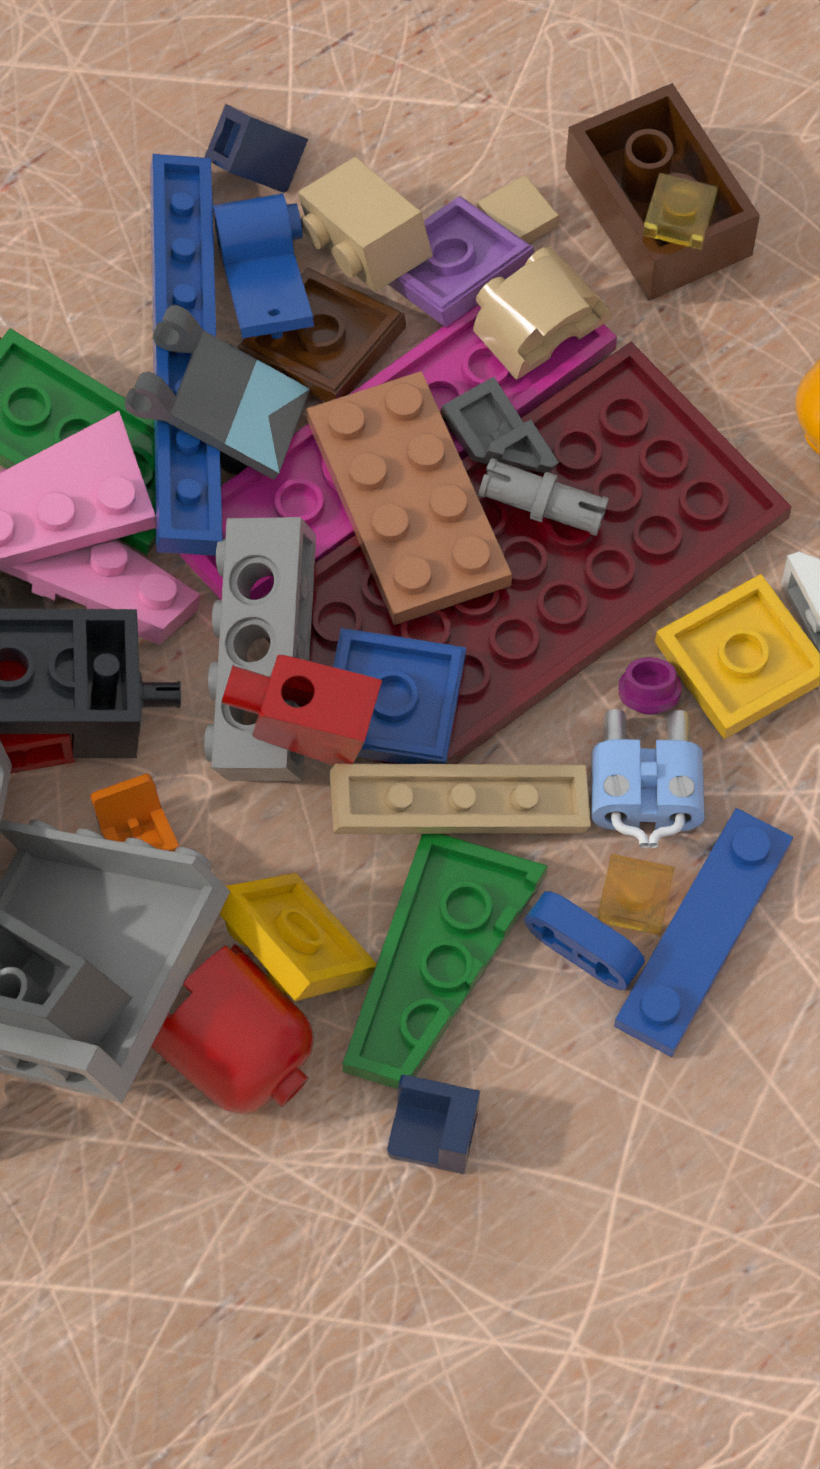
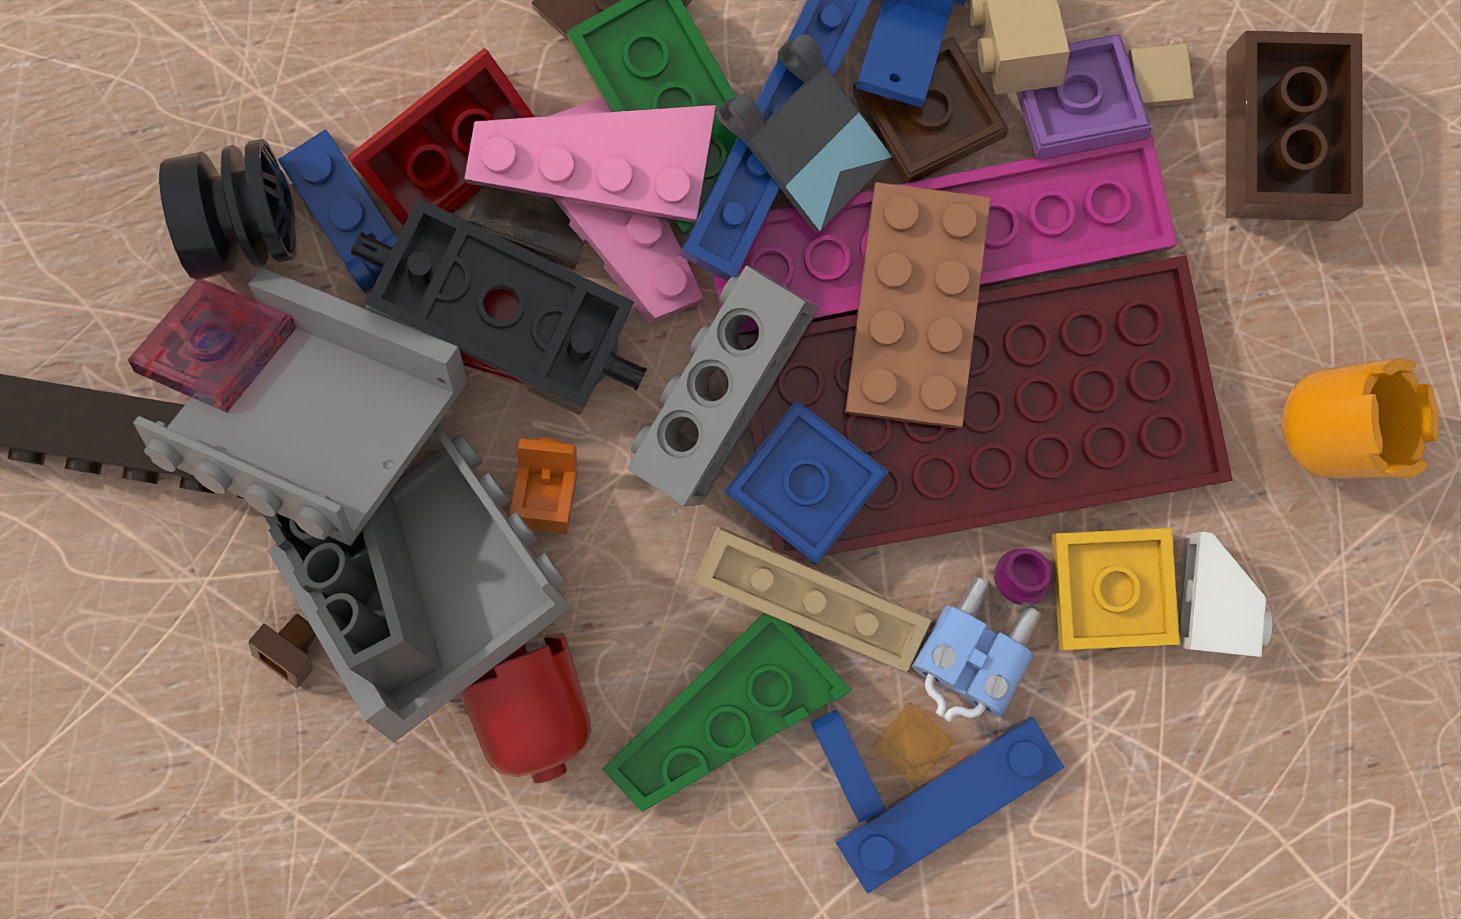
camera: 25 degrees right, 20 degrees up
(295, 936) = (617, 649): yellow plate -> none
(330, 714) = (735, 500): red torso -> none
(433, 1124) = (648, 854): dark blue panel -> none
(492, 428) = (1022, 283): dark grey slope -> none
(536, 311) = (1120, 191): tan cylinder -> none
(543, 496) = (1028, 369): light grey pin -> none
(680, 211) = (1295, 169): clear yellow plate -> none

